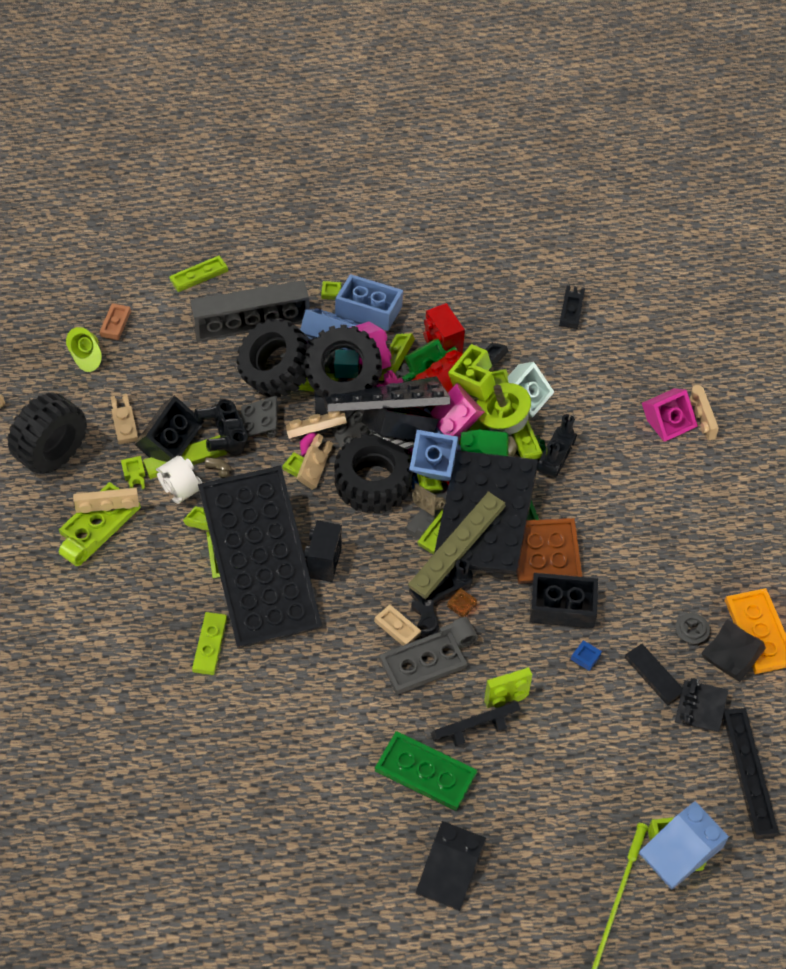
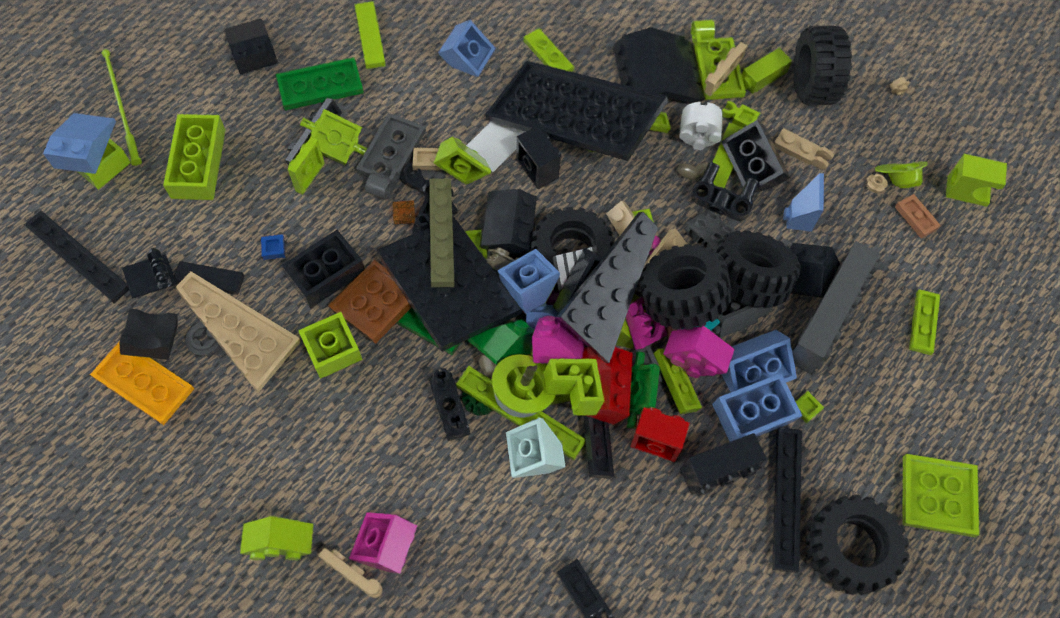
camera: 135 degrees right, 10 degrees up
(54, 302) = (973, 179): none -> lime piece
(64, 484) = (766, 70): none -> lime brick
(111, 363) = (876, 187): none -> tan plate
(151, 552) = (659, 64): none -> black hinge
(180, 375) = (806, 206): none -> medium blue slope
(230, 336) = (817, 269): none -> black slope
(274, 698) = (467, 49): none -> medium blue slope
(316, 200) = (940, 495): none -> lime plate
(335, 789) = (370, 35): none -> lime tile
(340, 606) = (495, 143): none -> white sticker
(384, 589) = (461, 161): none -> lime slope
(390, 227) = (881, 527): none -> black tyre
(397, 523) = (509, 221): none -> black slope
(408, 257) = (787, 500): none -> black plate
(424, 289) = (723, 464): none -> black brick
(461, 700) = (335, 136): none -> lime plate
(591, 776) = (194, 157): none -> lime brick
(605, 544) = (330, 345): none -> lime brick
(660, 601) = (245, 335): none -> tan wing
(740, 456) = (276, 537): none -> lime brick

